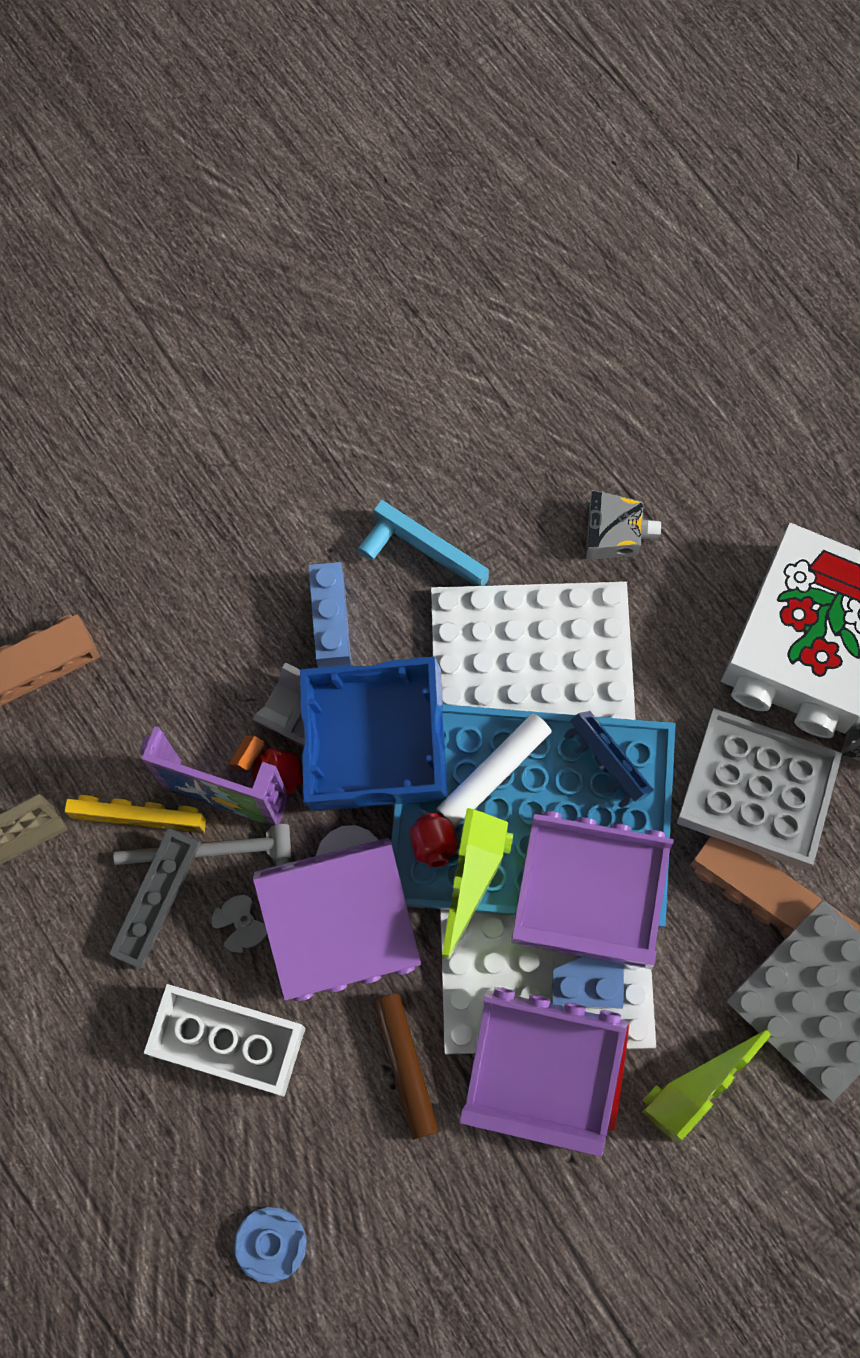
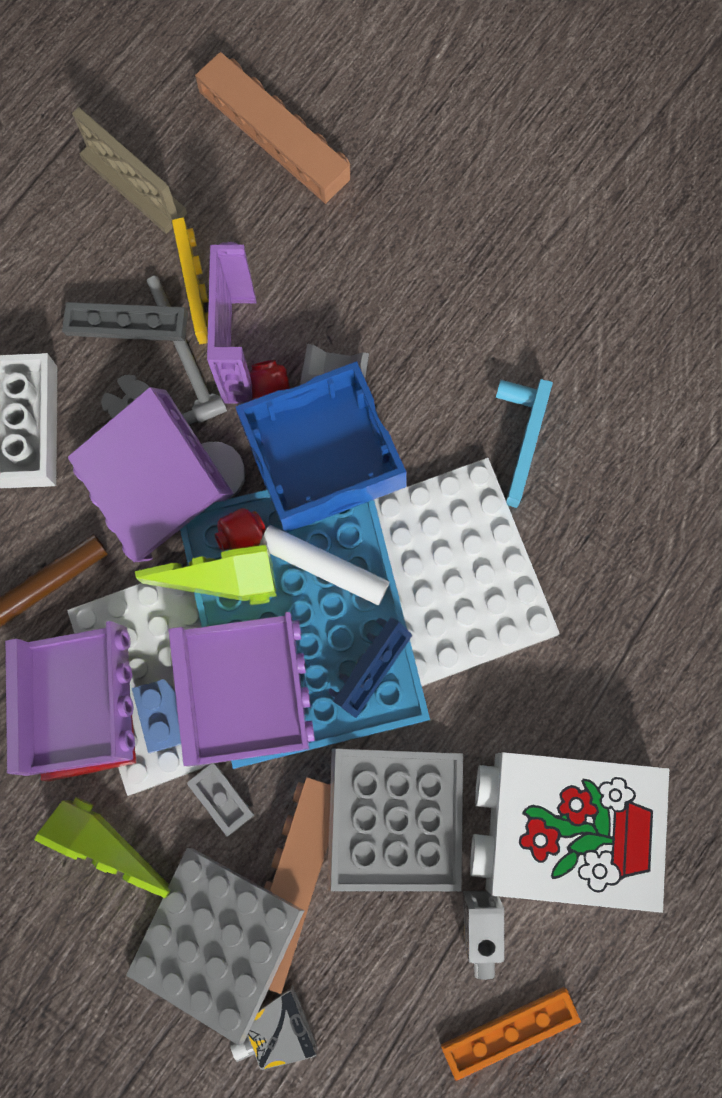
camera: 70 degrees right, 5 degrees up
(246, 753) = (276, 351): orange tile -> none
(329, 614) = (427, 377): medium blue brick -> none
(617, 526) = (610, 607): light grey torso -> none
(688, 954) = (220, 799): none -> light grey plate

